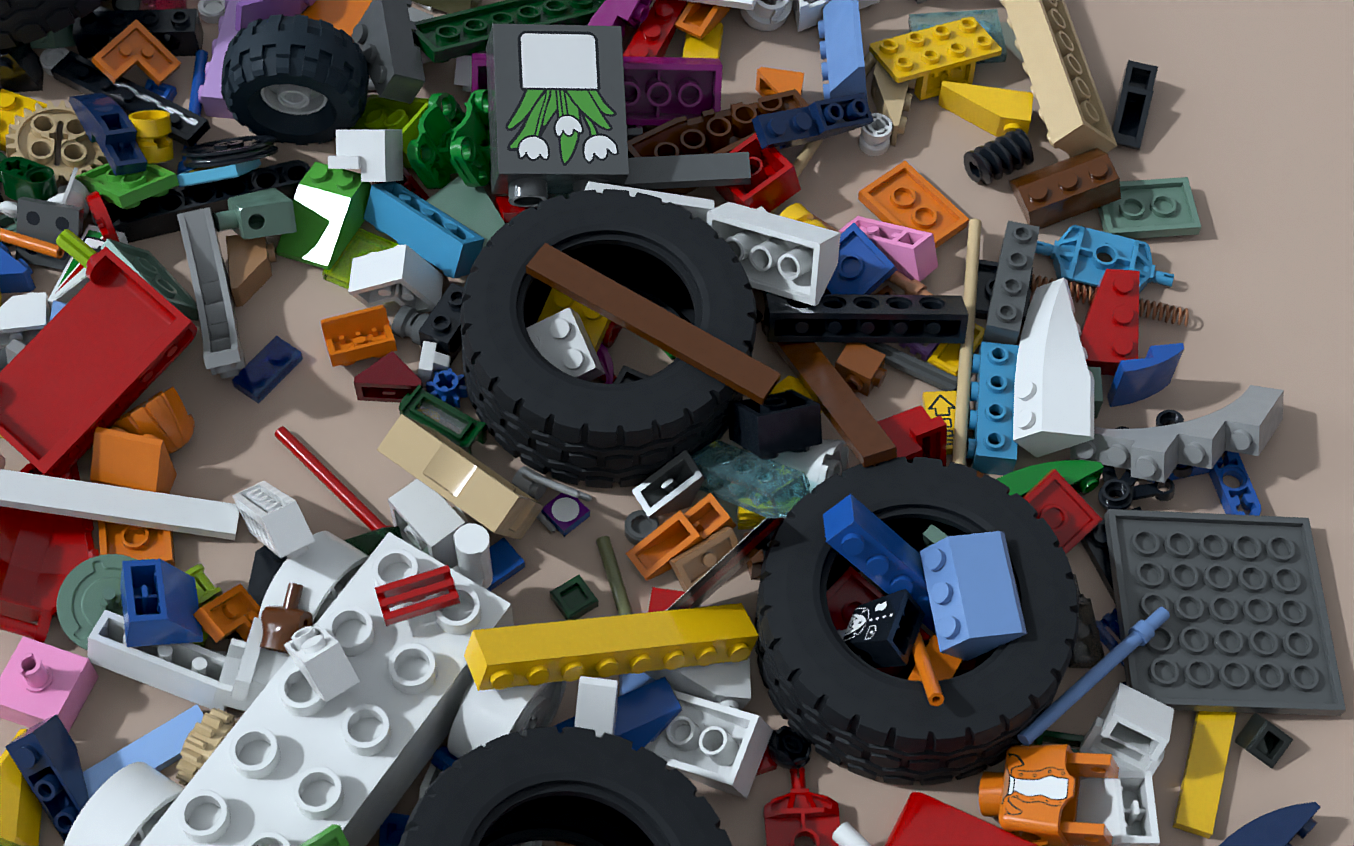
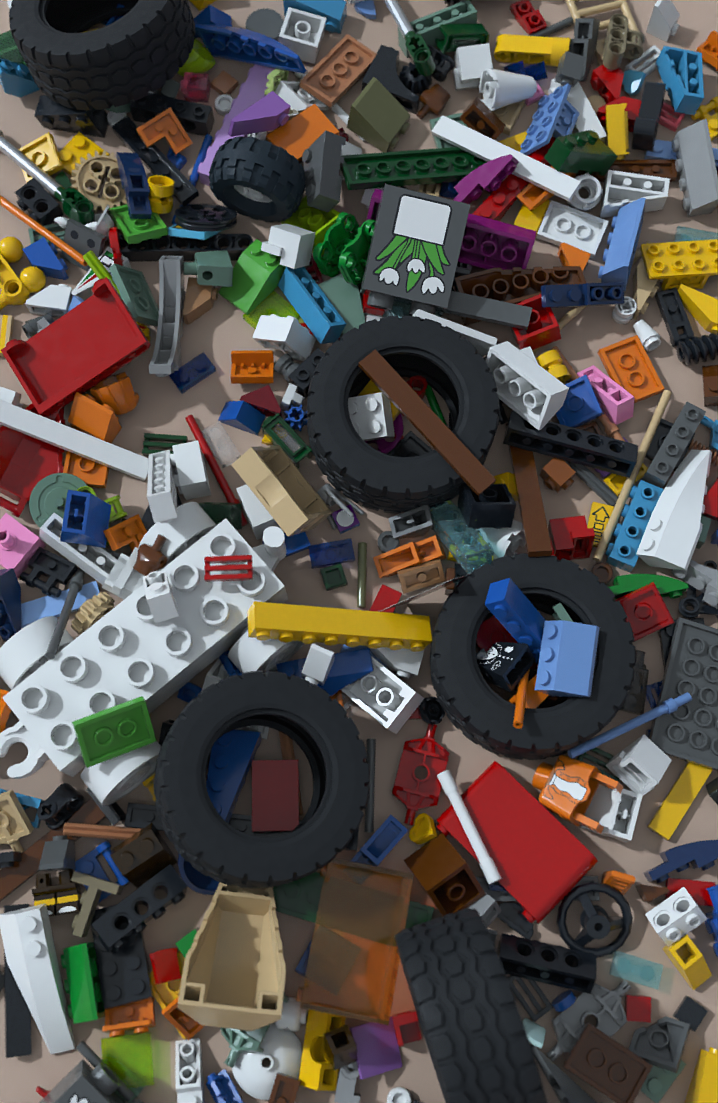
camera: 20 degrees right, 15 degrees up
(116, 701) = (49, 565): none -> black plate
(165, 717) = (75, 585): none -> dark grey bar
(250, 475) = (161, 437): none -> dark green tile
(305, 482) = (190, 470): none -> white brick
(342, 457) = (221, 444): none -> clear plate
(362, 409) = (242, 416): none -> blue slope
(560, 564) = (331, 553): none -> clear blue plate
(757, 46) = (572, 227): none -> white plate
(921, 159) = (648, 336): none -> white cone
(945, 125) = (674, 315): none -> black plate

